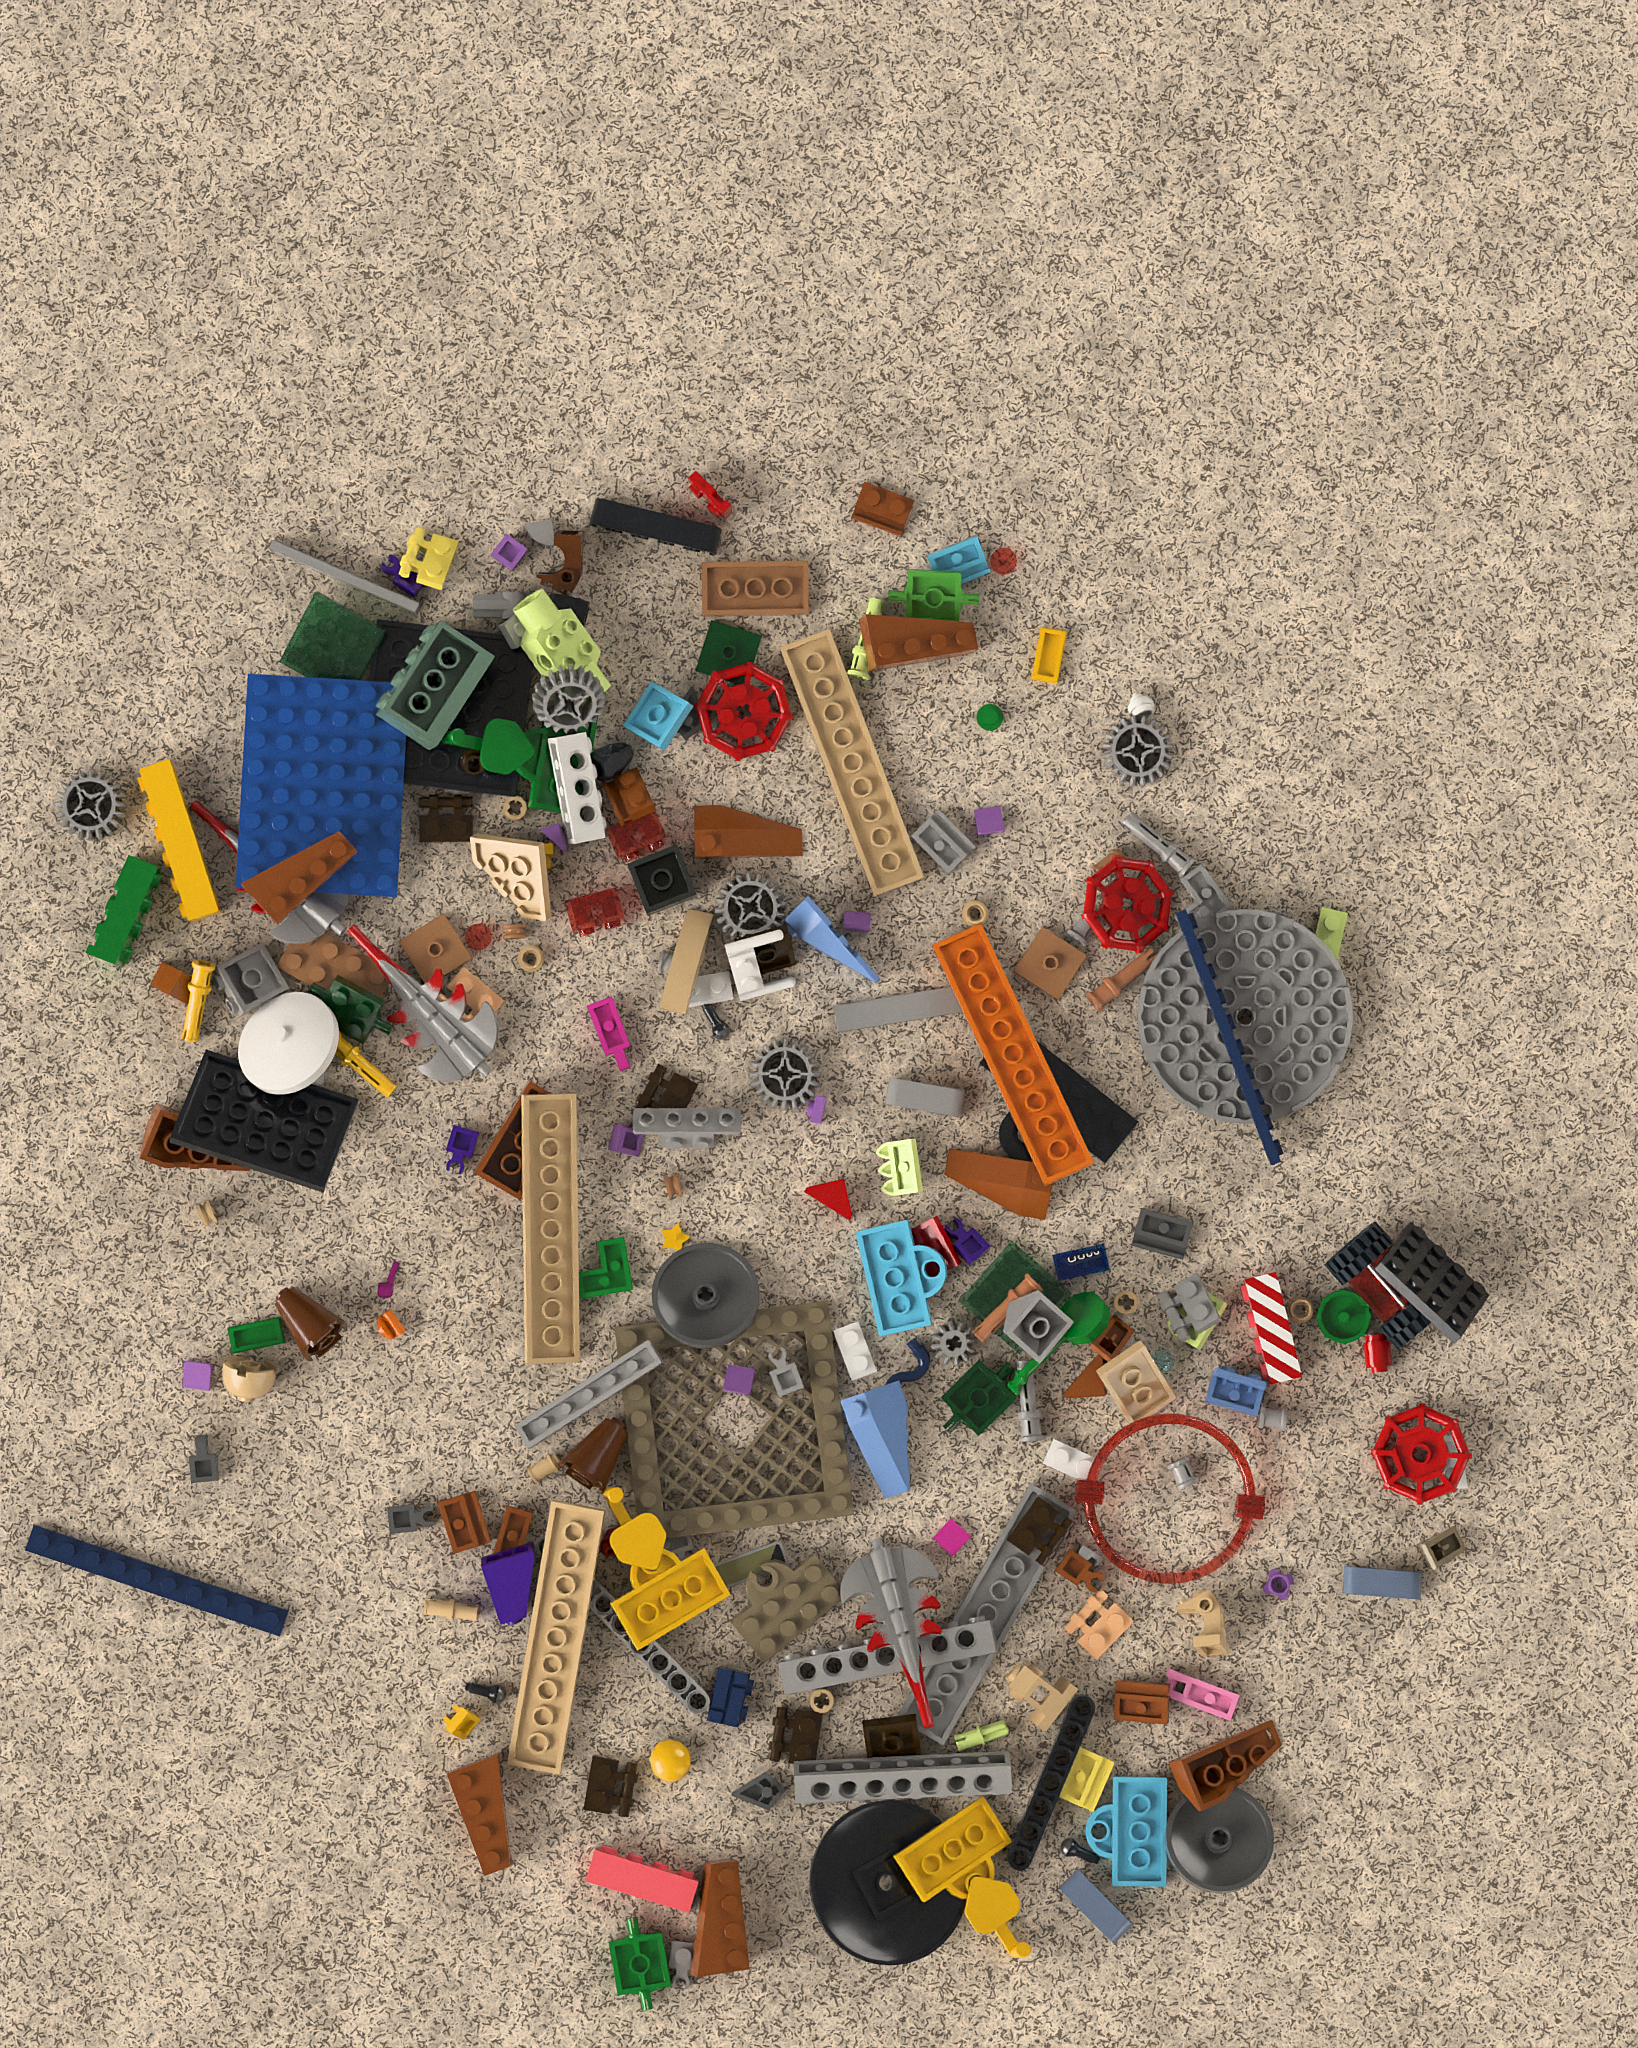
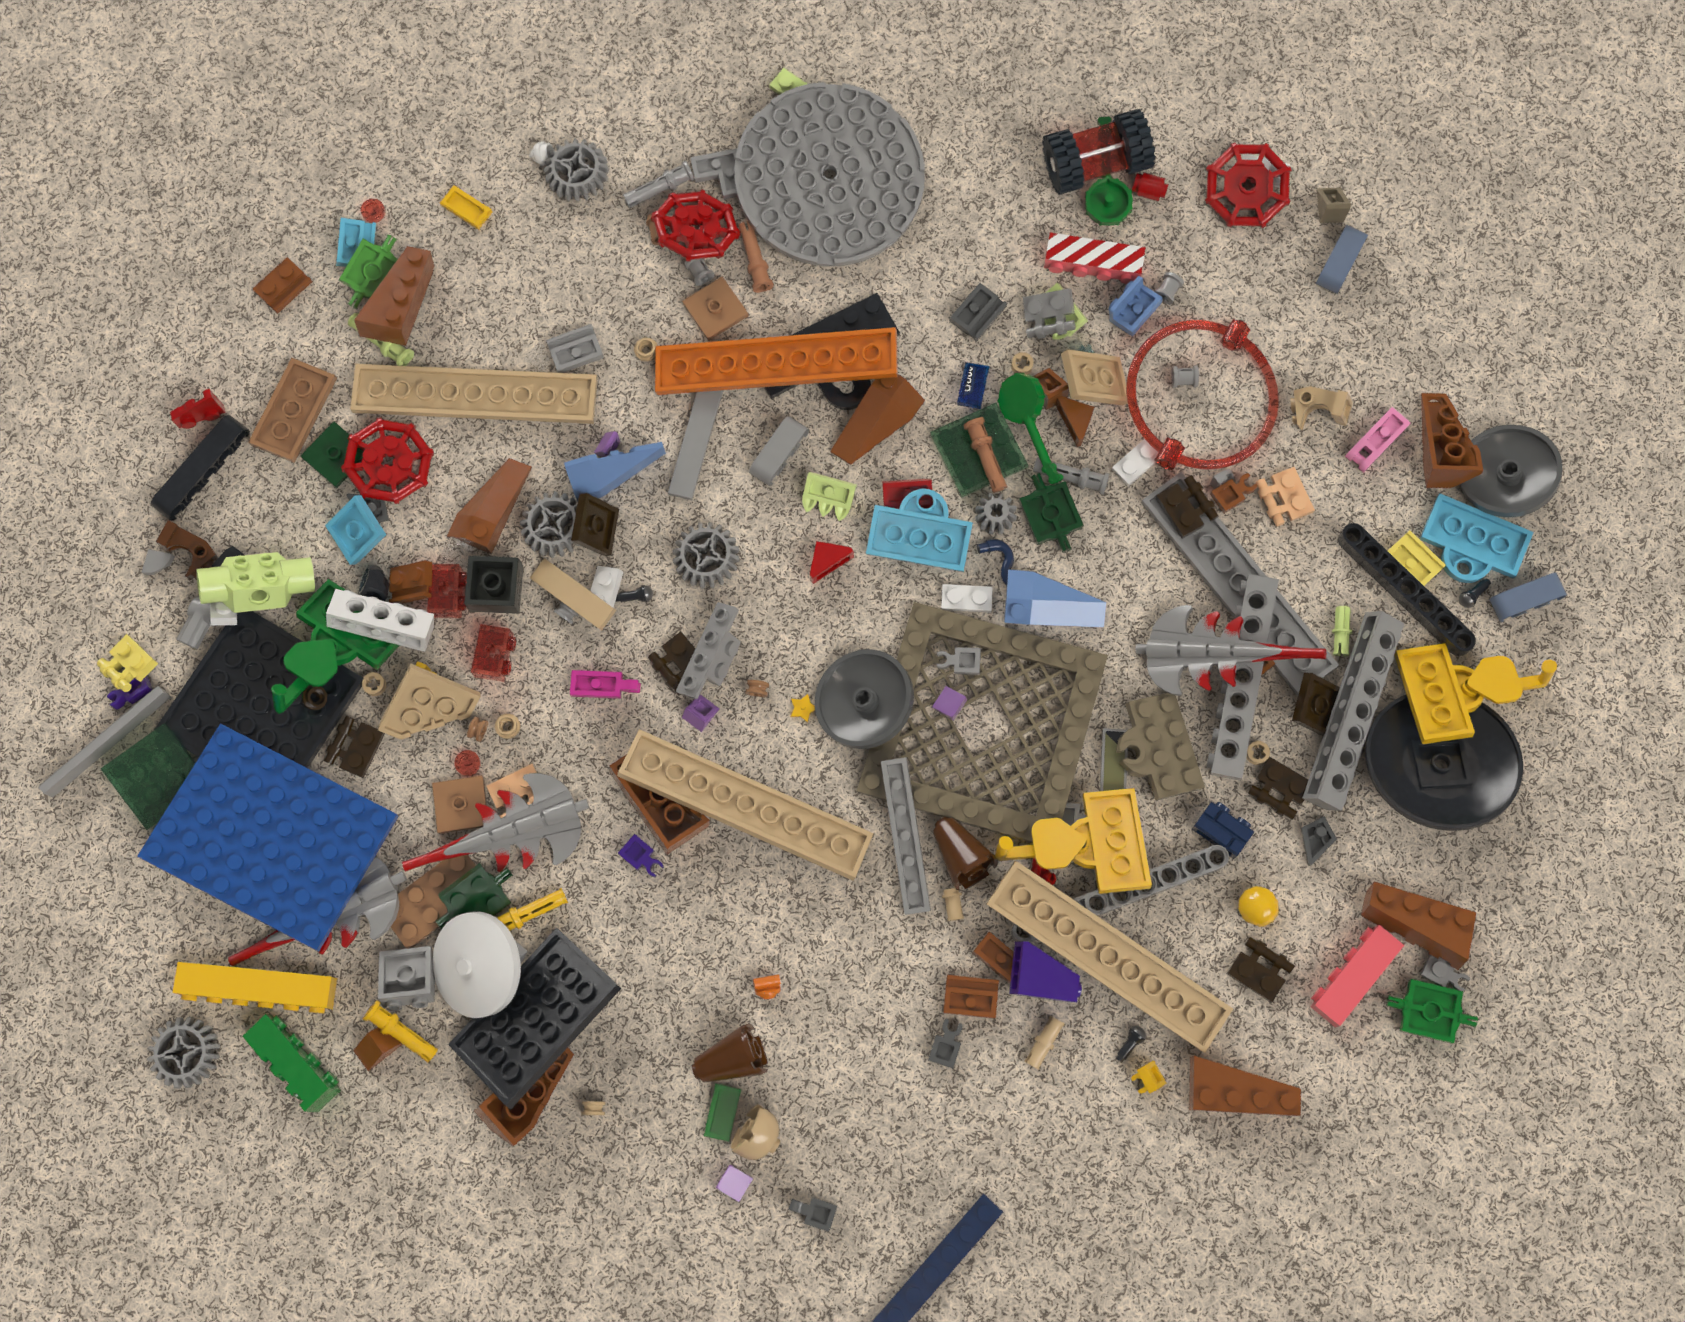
camera: 65 degrees left, 10 degrees down
(299, 876) = (333, 890): dark orange wedge -> none
(385, 1290) = (734, 977): magenta hand -> none
(451, 690) = (228, 697): sand green brick -> none
(509, 552) = (158, 595): medium lavender plate -> none
(555, 835) = (412, 656): medium lavender slope -> none
(575, 686) = (300, 568): light grey gear -> none
(613, 1275) = (811, 772): green plate -> none
(746, 969) = (600, 544): white plate -> none
(816, 1109) = (748, 541): medium lavender plate -> none
(951, 1537) = (1160, 585): dark pink tile -> none
(968, 1244) = (918, 467): dark purple plate -> none
(989, 717) = (492, 272): green plate -> none
(989, 821) = (576, 307): medium lavender slope -> none
(1024, 1681) = (1312, 571): tan tile -> none
(1035, 1324) = (1009, 431): light grey slope -> none
(1142, 1701) = (1366, 486): dark orange plate -> none
(1226, 1025) = (847, 188): dark blue plate -> none
(1285, 1580) = (1309, 334): medium lavender plate -> none
(1309, 1309) = (1091, 226): tan plate -> none
(1432, 1282) = (1113, 109): black plate -> none

